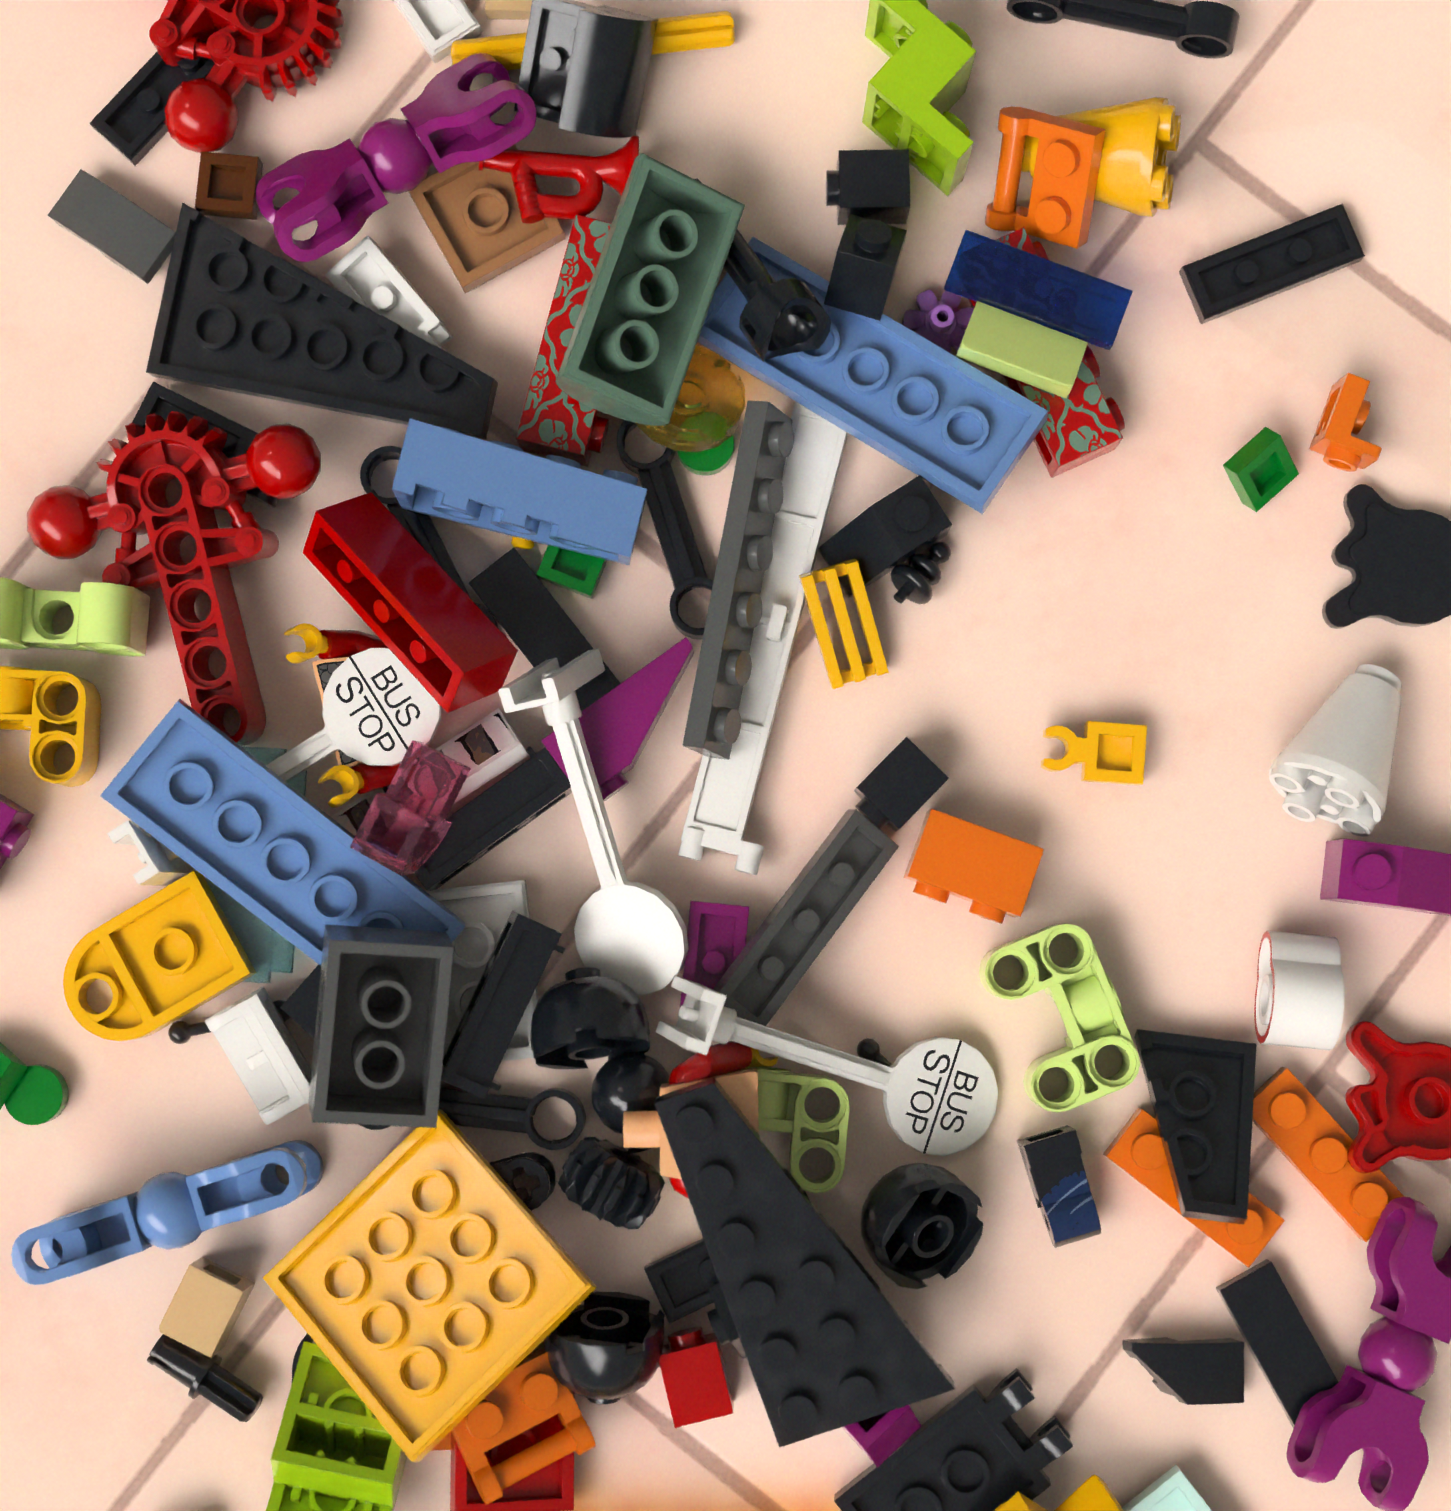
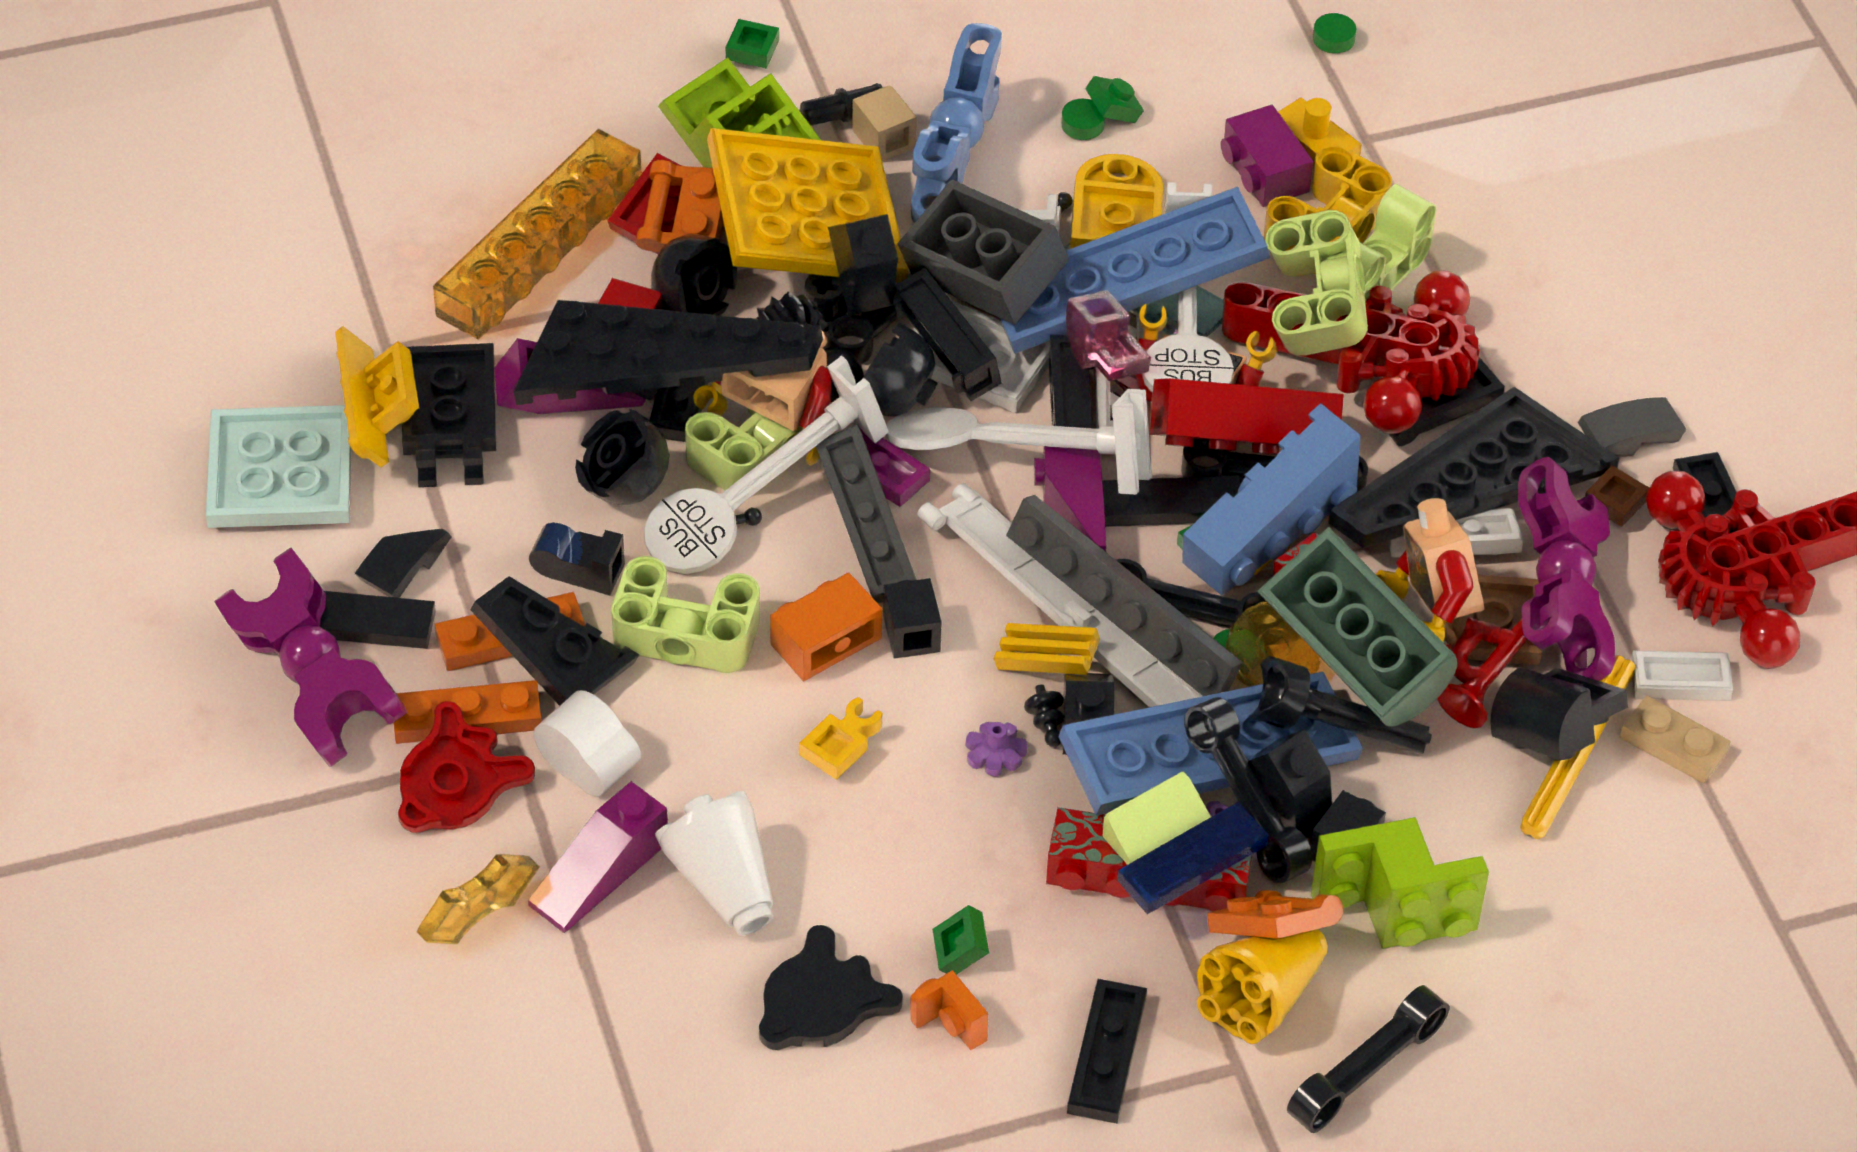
camera: 120 degrees right, 35 degrees down
(168, 598) = (1338, 278): none -> yellowish green beam
(478, 1154) = (865, 263): none -> black slope
(504, 258) = (1438, 566): none -> torso
(883, 347) = (1222, 743): none -> black piece
(984, 610) = (996, 747): none -> medium lavender plant

